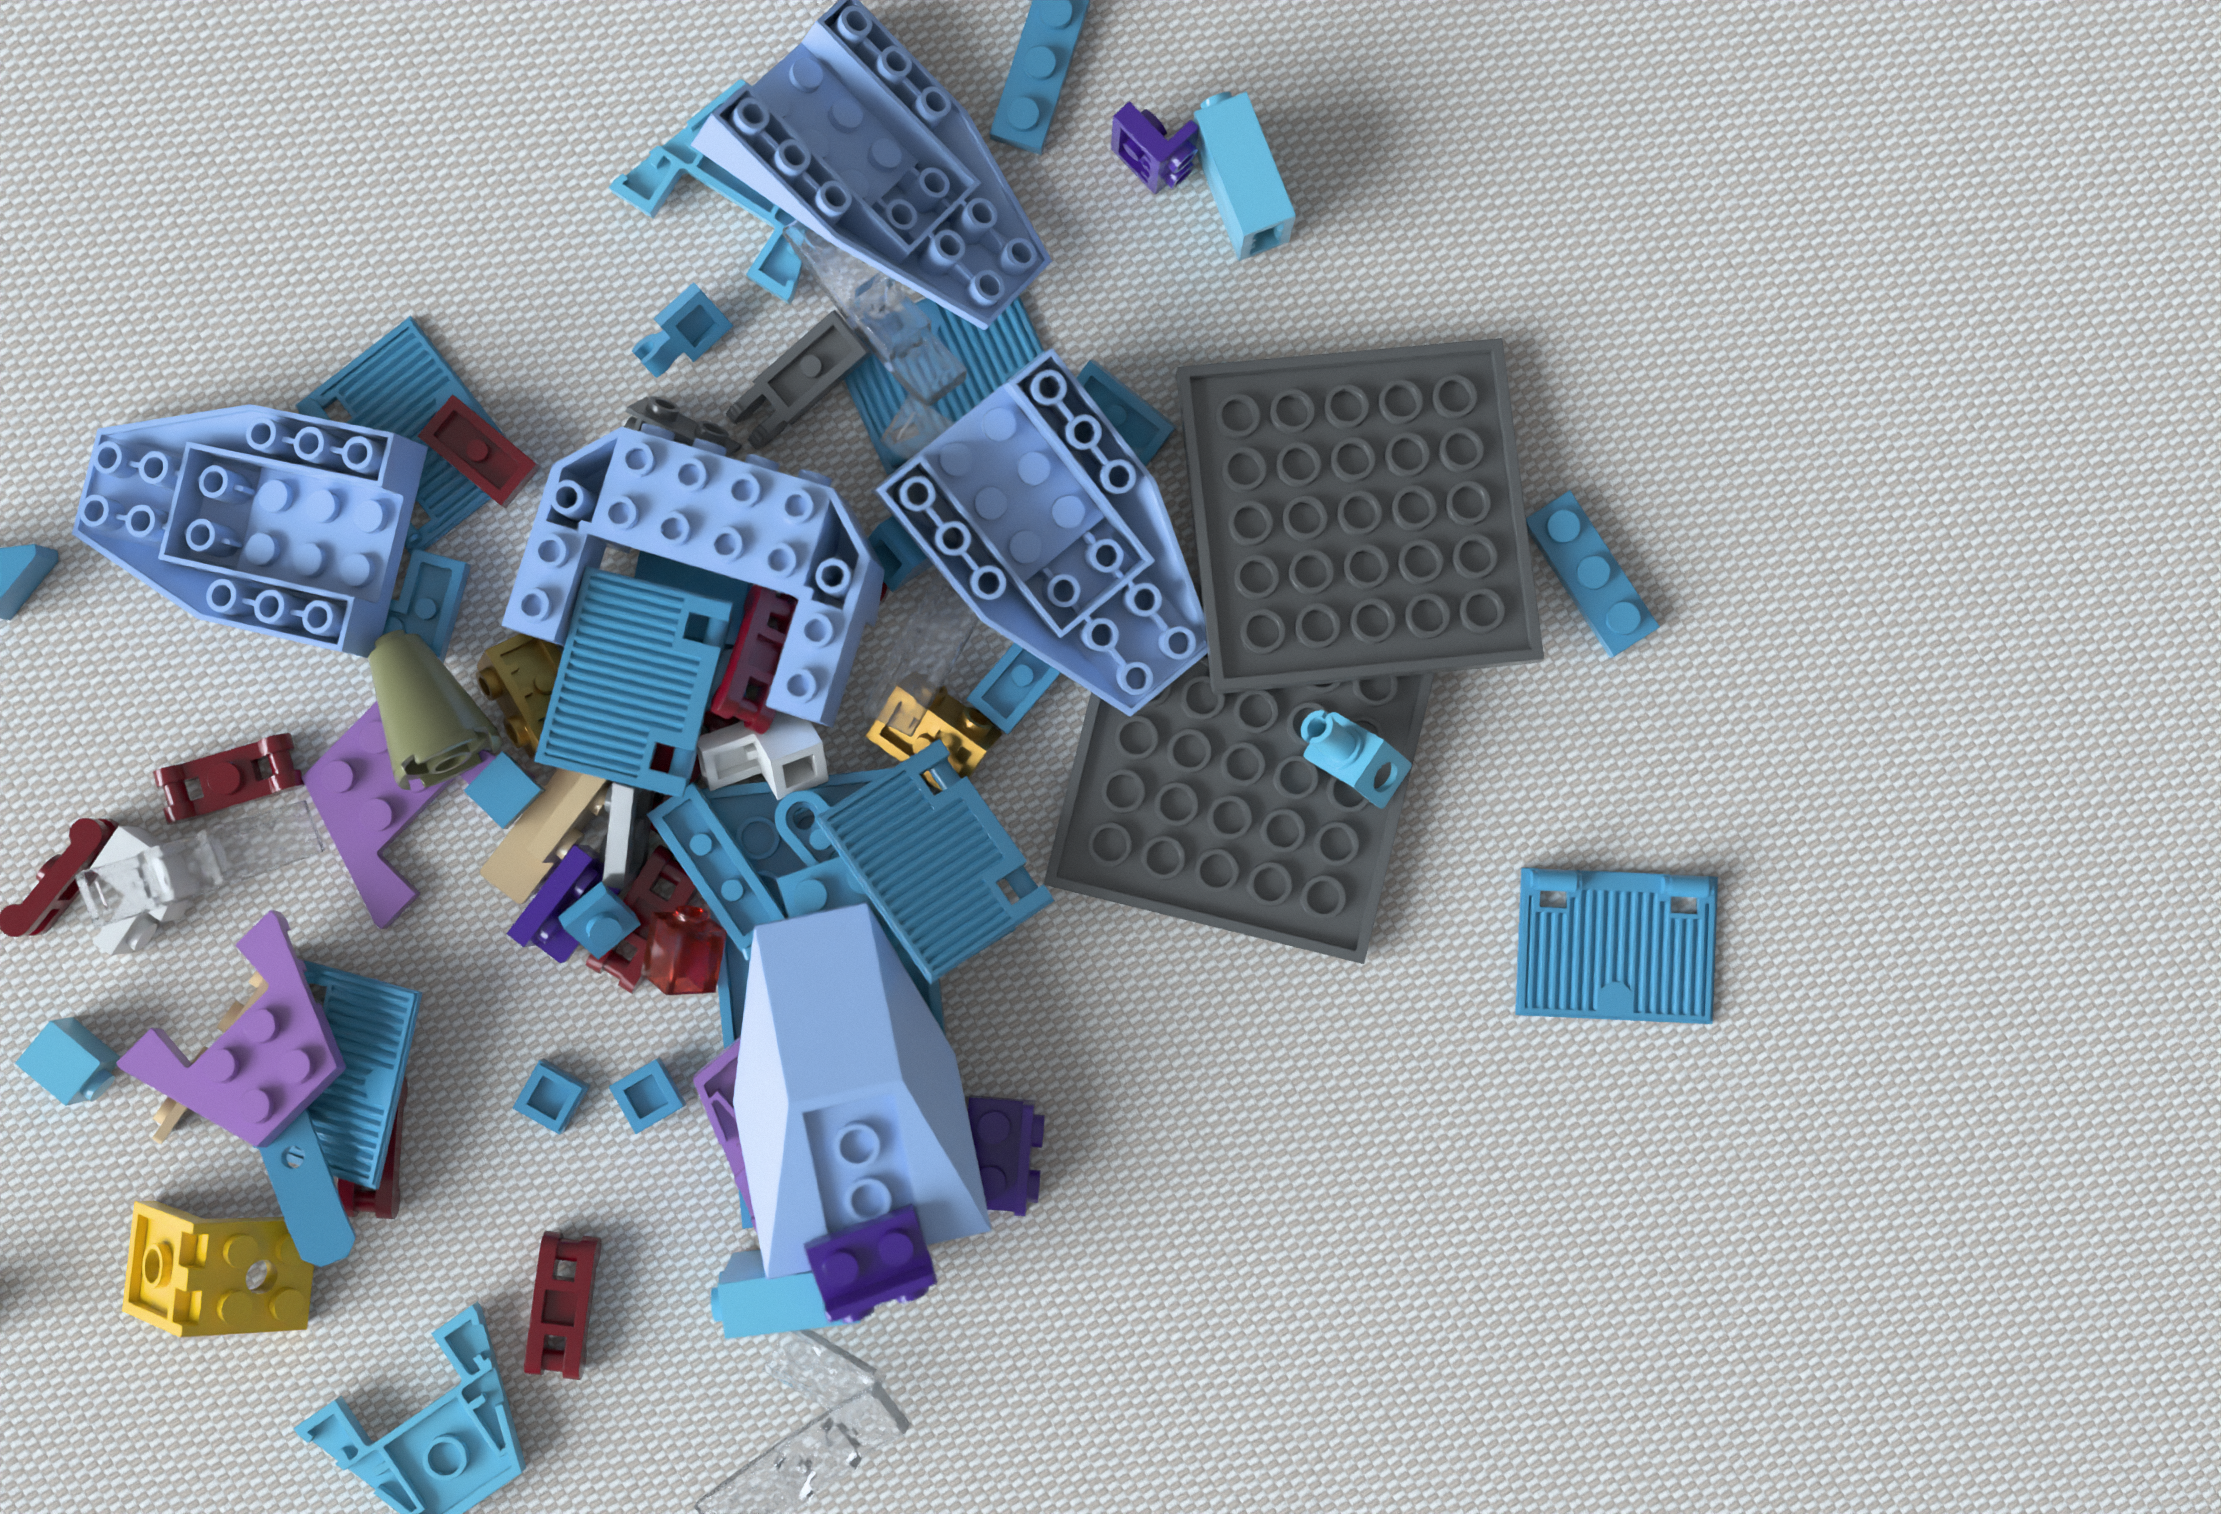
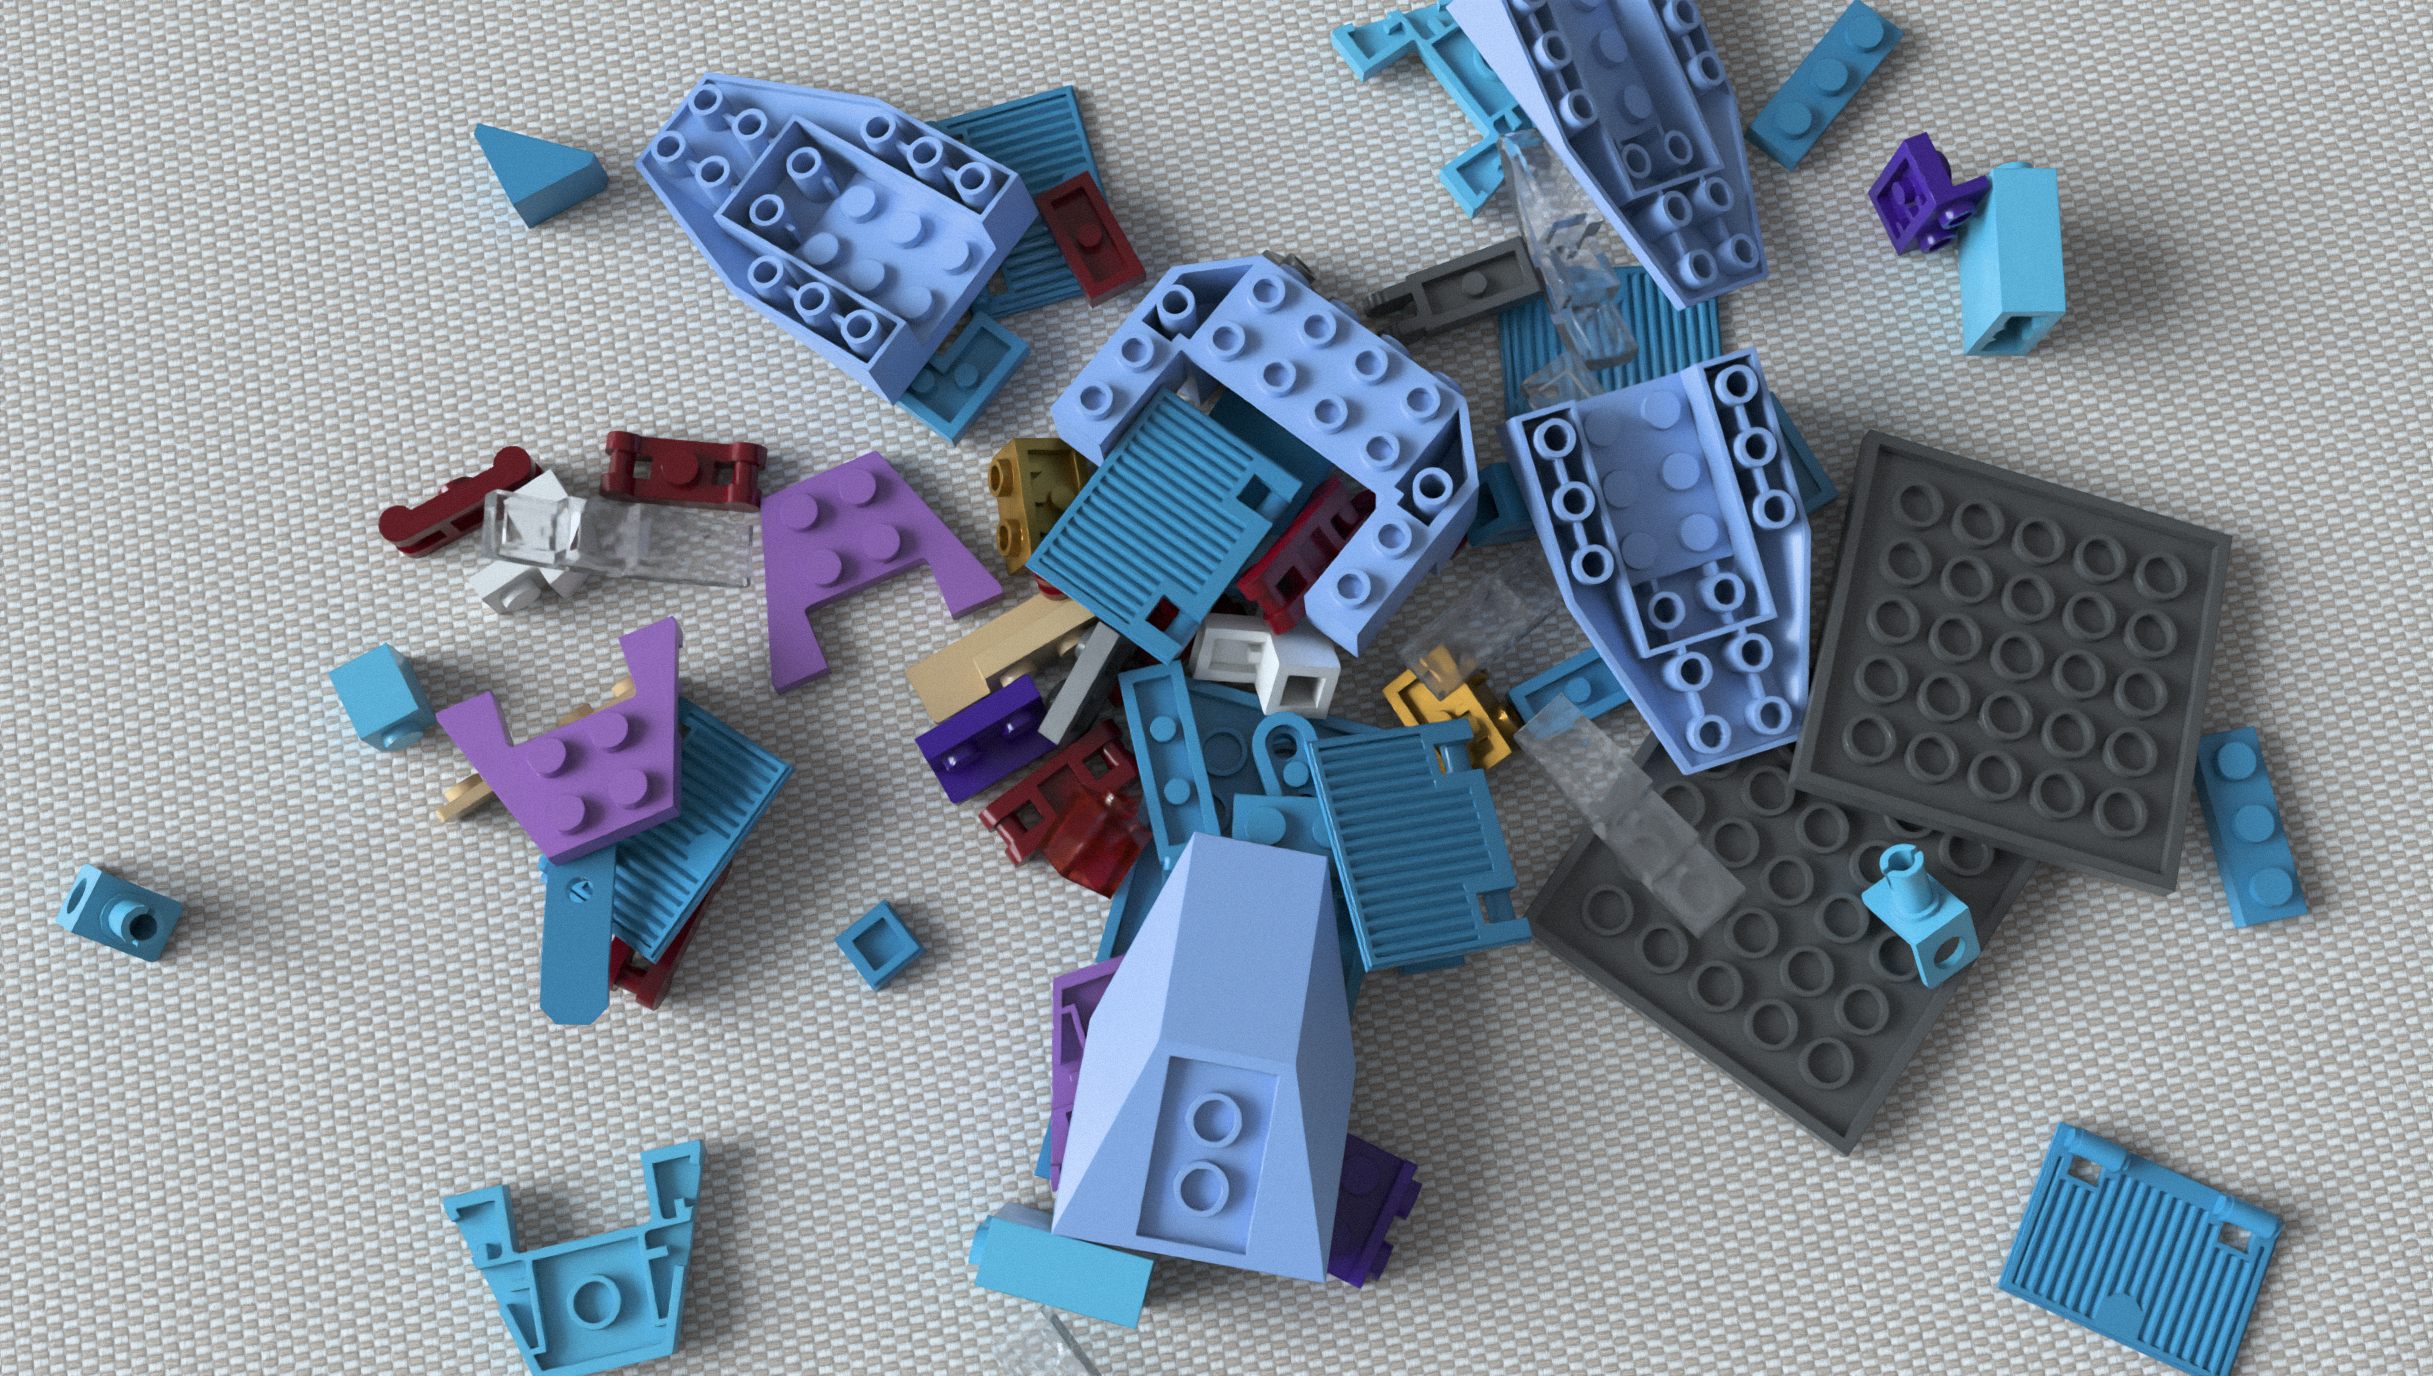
camera: 15 degrees right, 10 degrees down
(193, 1273) = (416, 970): yellow bracket -> none
(426, 713) = (926, 479): olive cone -> none
(504, 790) = (971, 593): dark azure tile -> none
(562, 1305) = (795, 1183): dark red plate -> none
(599, 920) = (1018, 767): dark azure plate -> none
(647, 1095) = (987, 985): dark azure plate -> none
(688, 326) = (1358, 200): dark azure plate -> none
(871, 1265) = (1178, 1264): dark purple bracket -> none
(1096, 765) = (1629, 815): none -> clear slope

